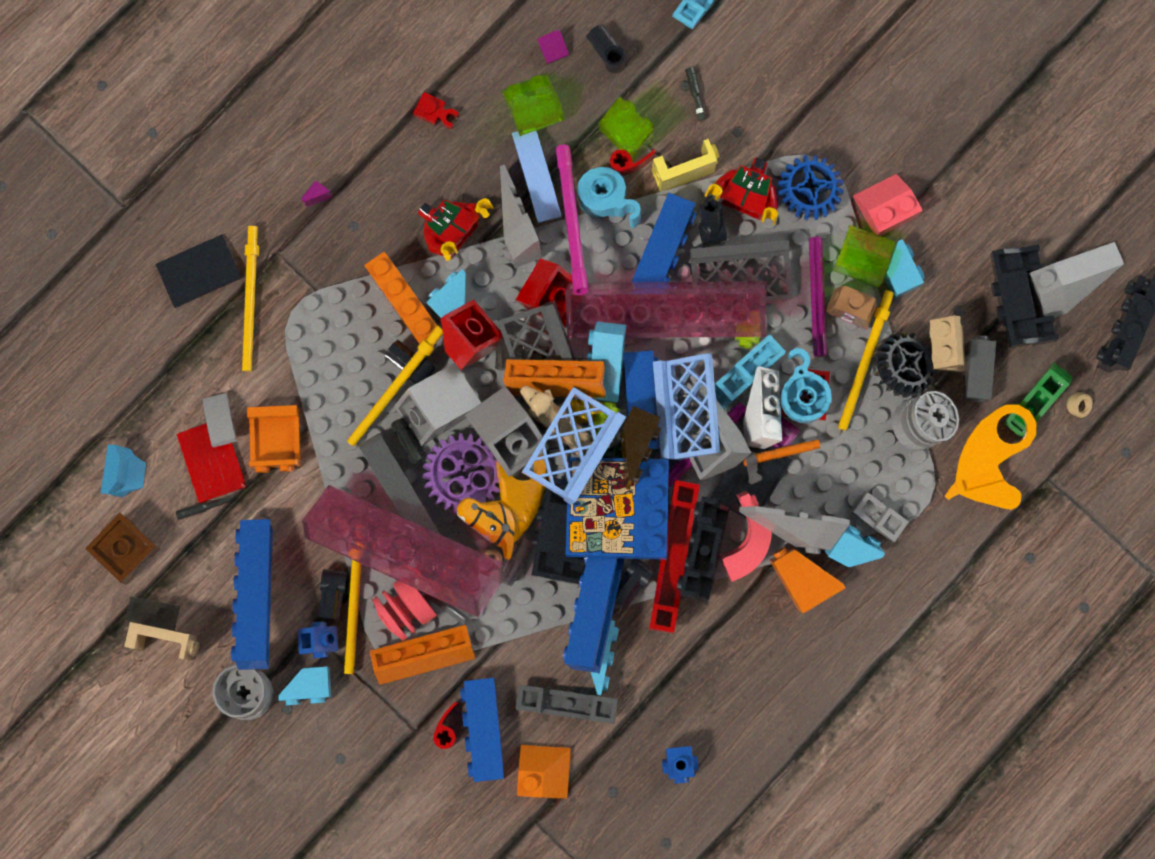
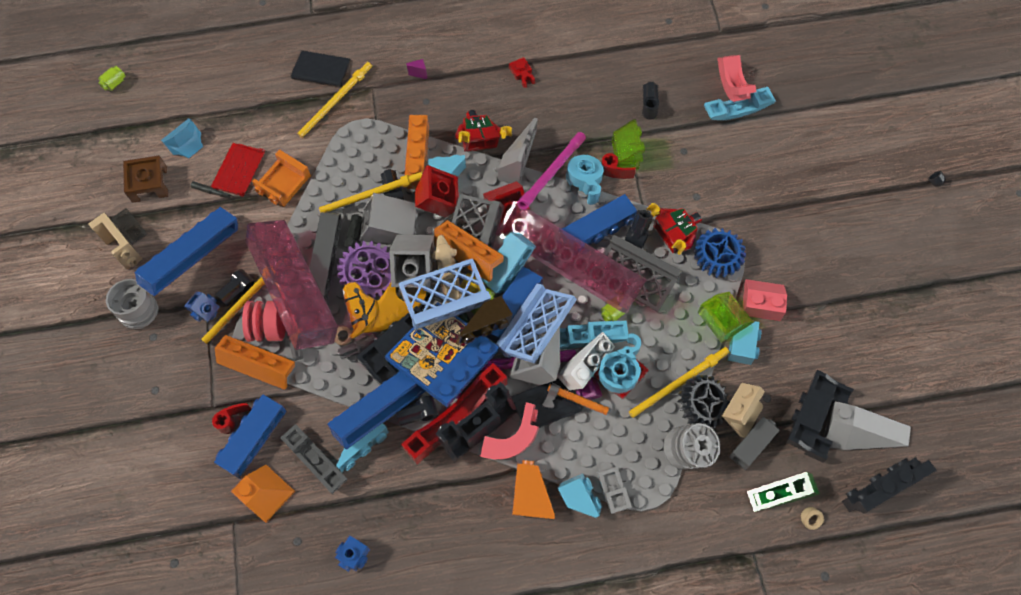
camera: 40 degrees right, 15 degrees down
(219, 420) = (259, 148): light grey slope -> none
(308, 684) = (174, 329): medium azure slope -> none
(533, 104) = (581, 101): clear neon green slope -> none
(537, 176) = (552, 139): light blue slope -> none
(553, 46) = (618, 79): magenta slope -> none
(686, 171) = (647, 191): light yellow panel -> none
(695, 92) = (687, 156): pearl dark grey piece -> none
(799, 528) = (554, 459): light grey wedge -> none
(817, 297) = (675, 321): magenta axle -> none
(852, 306) = (694, 339): medium nougat torso -> none
(978, 464) = (719, 498): light orange animal -> none

